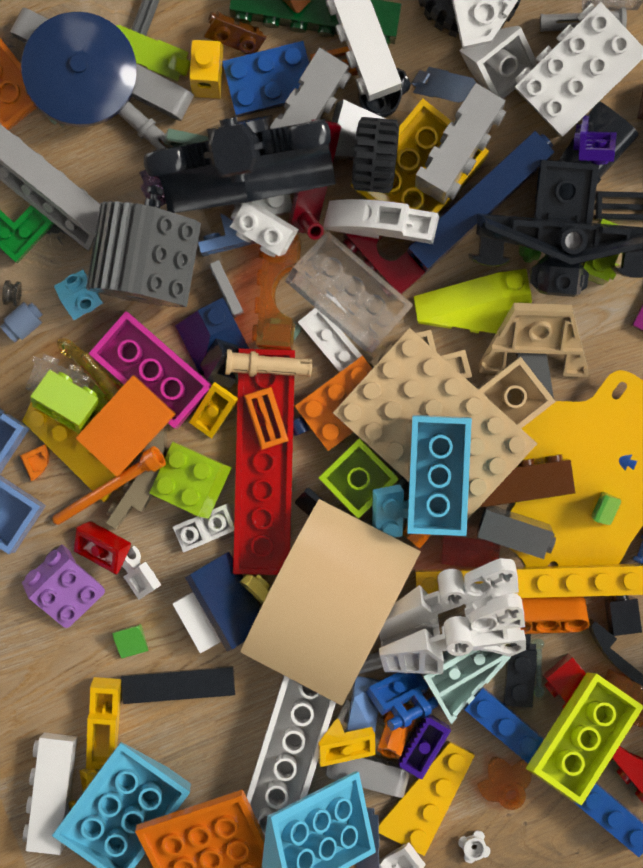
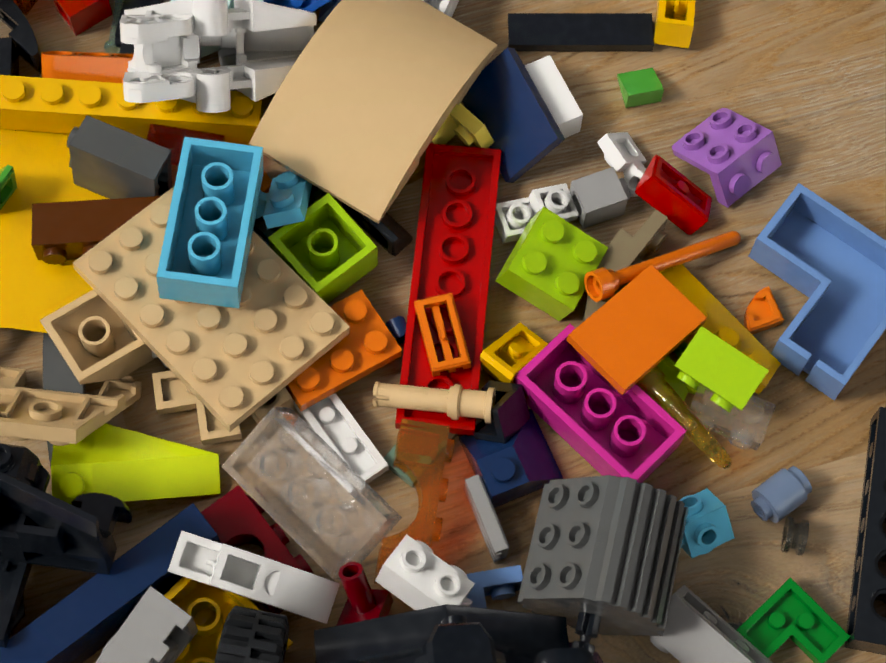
camera: 175 degrees left, 20 degrees down
(157, 541) = (599, 197): none -> light grey brick

